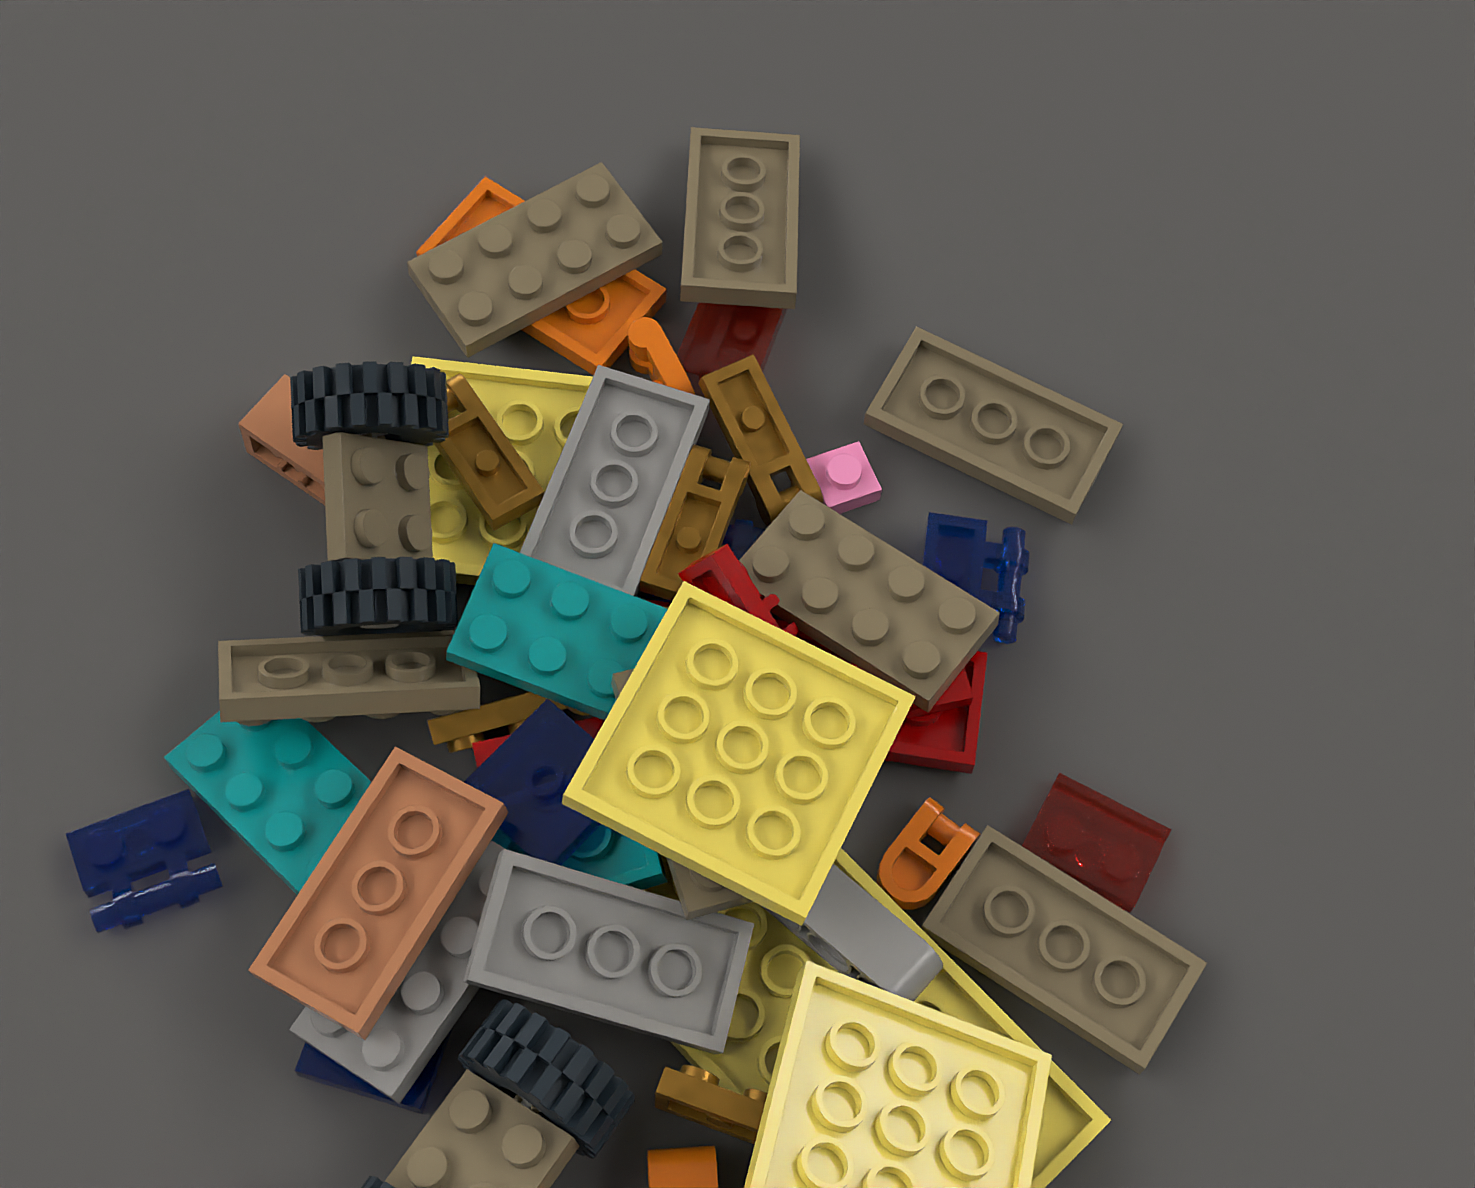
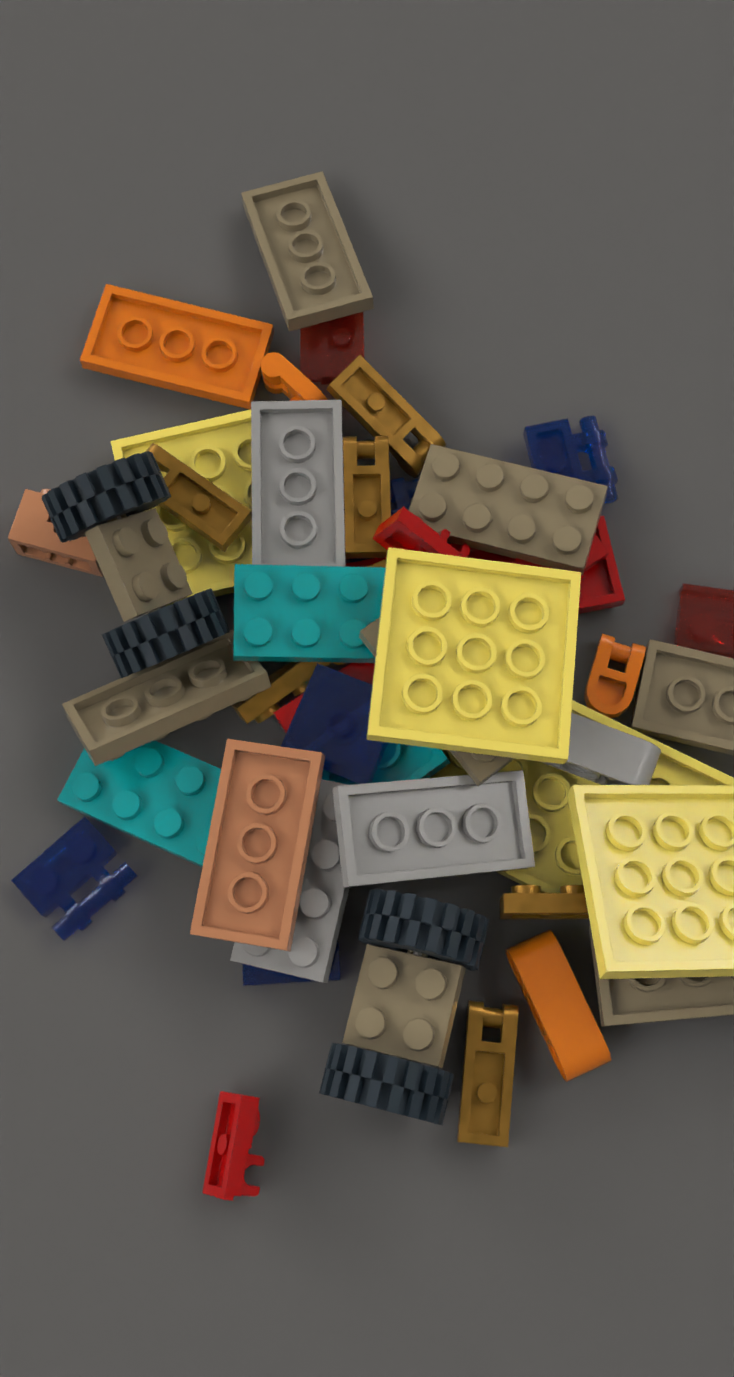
camera: 15 degrees left, 10 degrees up
(534, 259) = (169, 335): dark tan plate -> none
(845, 478) = (454, 421): bright pink plate -> none
(993, 424) = (544, 344): dark tan plate -> none

